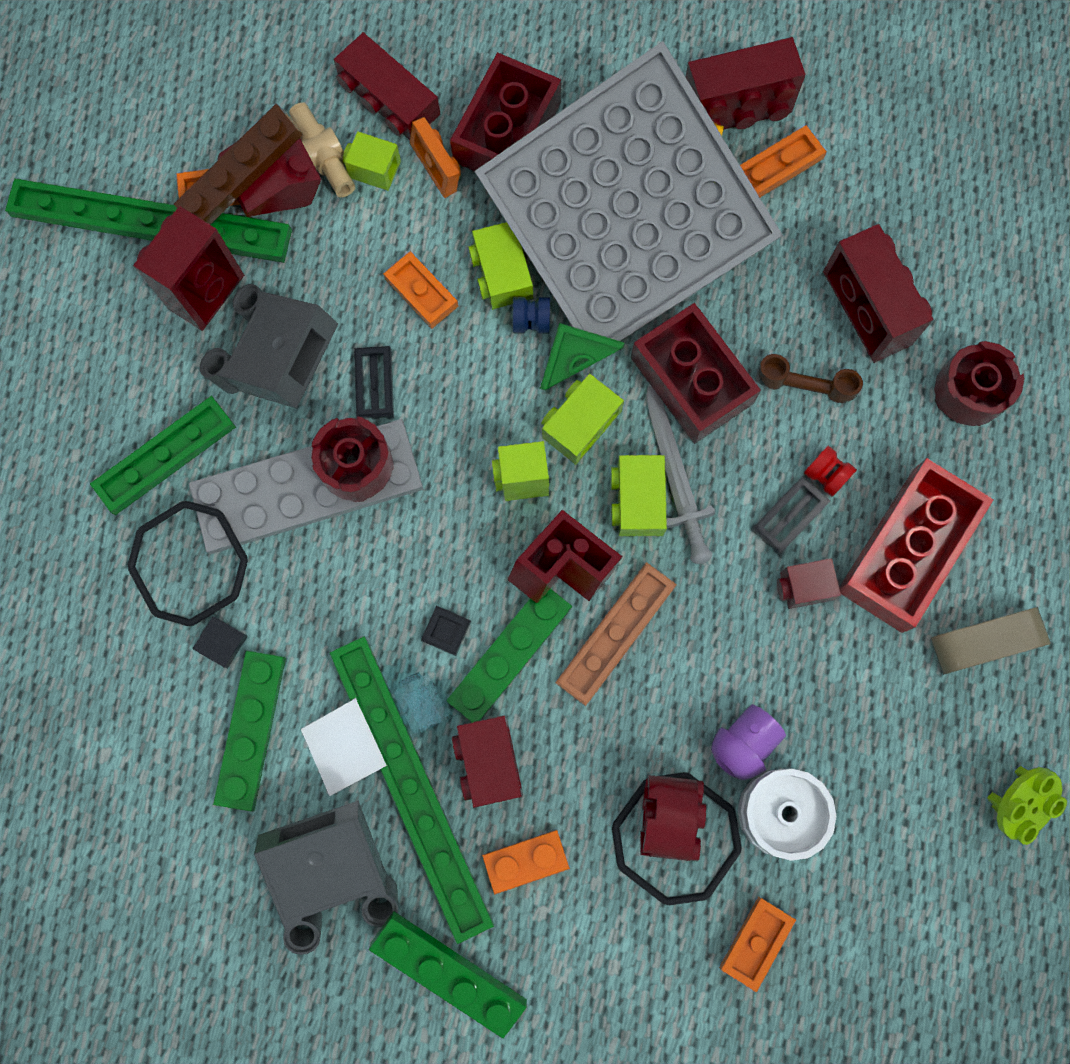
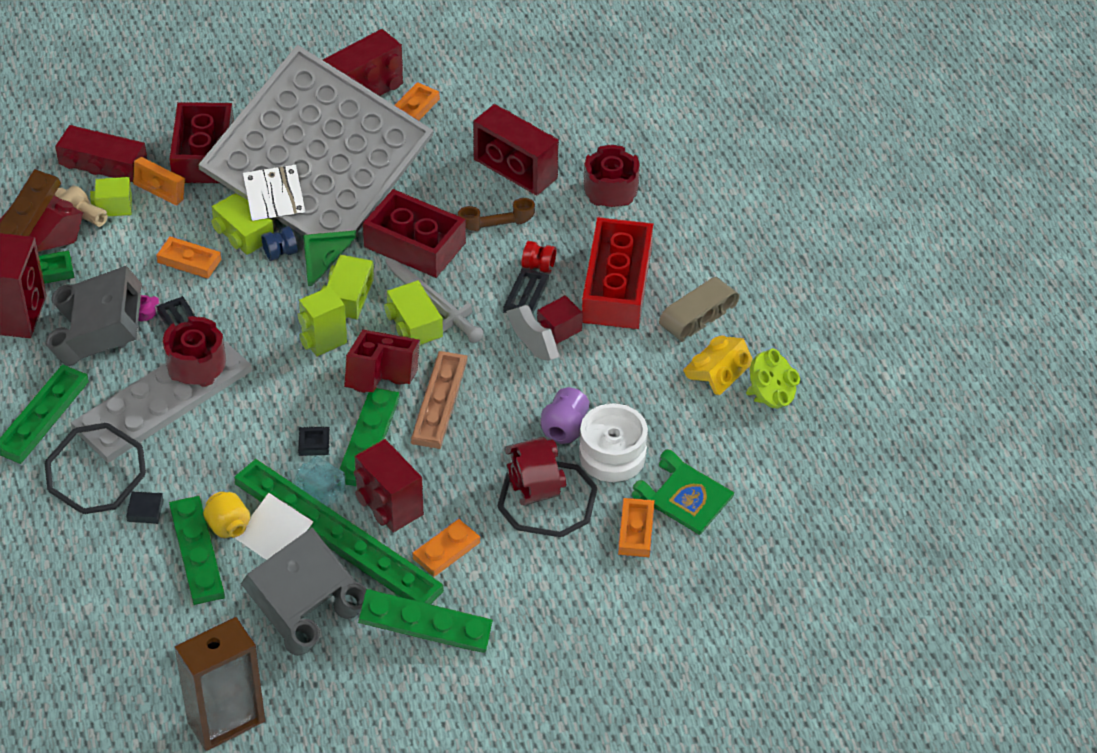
camera: 30 degrees left, 30 degrees down
(152, 1005) = (220, 683): none -> reddish brown brick
(296, 706) = (226, 514): none -> yellow head
(344, 350) = (147, 307): none -> dark pink plate
(549, 246) = (274, 192): none -> white sticker
(767, 590) = (533, 335): none -> light grey tile
(841, 920) = (686, 495): none -> green flag
(976, 735) = (720, 363): none -> yellow bracket

